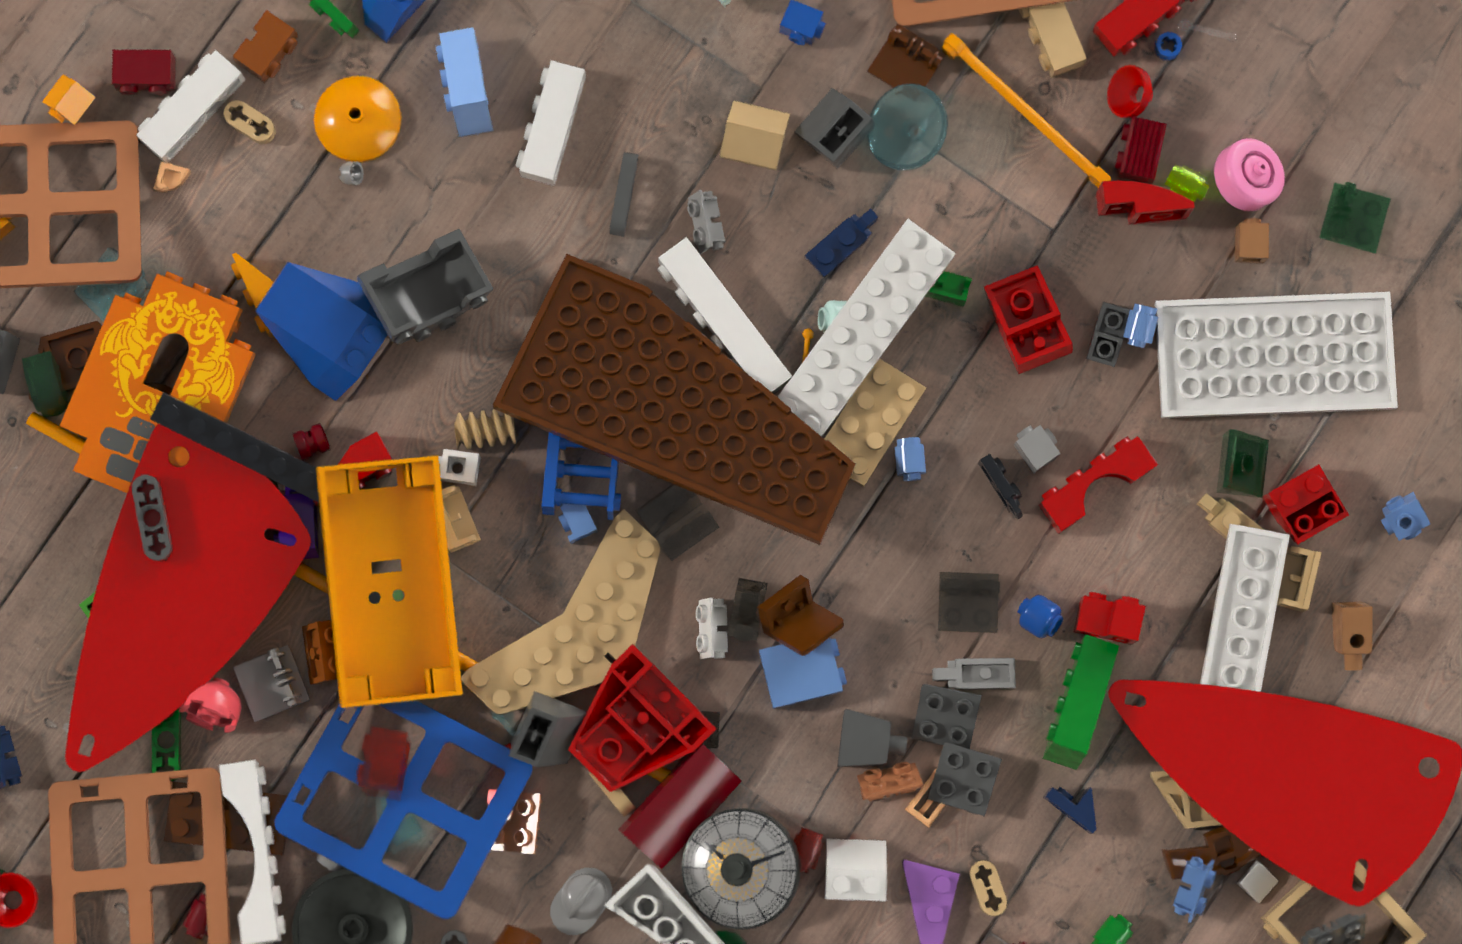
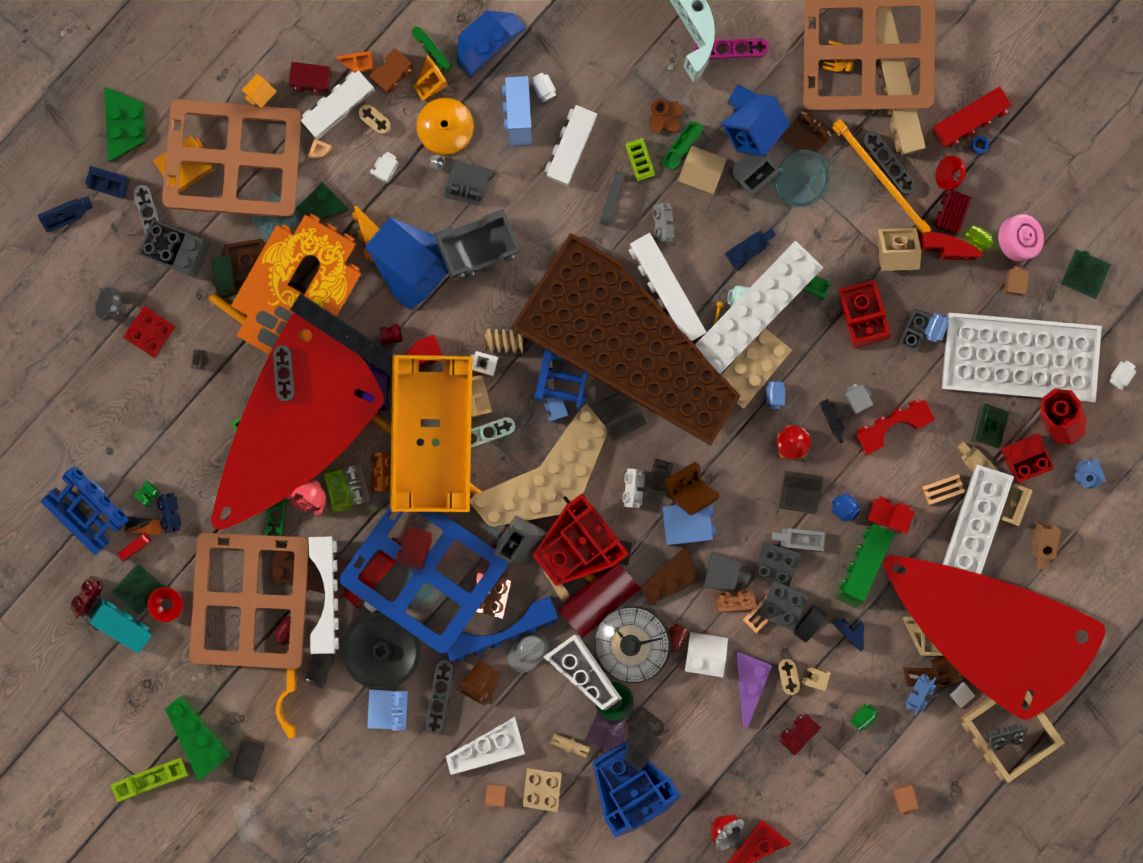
camera: 10 degrees right, 5 degrees up
(23, 516) = (200, 359): none -> clear smoke slope
(183, 256) = (321, 203): none -> dark green wing
(217, 37) = (357, 61): none -> orange tile
(269, 712) = (343, 506): none -> clear neon green slope
(273, 191) = (385, 167): none -> white brick
(326, 53) = (429, 80): none -> light orange slope
(326, 813) = (373, 574): none -> red slope
(400, 199) = (467, 183): none -> dark grey hinge
(463, 571) = (481, 439): none -> light aqua beam
(500, 42) = (544, 87): none -> white brick
(588, 840) = (538, 613): none -> blue arch
(647, 108) = (639, 142): none -> lime slope
(690, 66) = (667, 118): none -> dark orange plate
(719, 101) = (682, 145): none -> green hinge
(788, 759) = (671, 578): none -> reddish brown wing
(827, 57) = (756, 125): none -> blue slope
(947, 527) = (793, 442): none -> red hair
(1009, 800) = (810, 623): none -> black tyre
(1032, 92) = (892, 161): none -> dark grey beam
(1036, 883) = (819, 680): none -> tan hinge
(1068, 216) = (899, 249): none -> tan slope
(1208, 558) = (959, 484): none -> light nougat tile
(1351, 434) = (1063, 416): none -> red brick
(1433, 361) = (1123, 374): none -> white brick

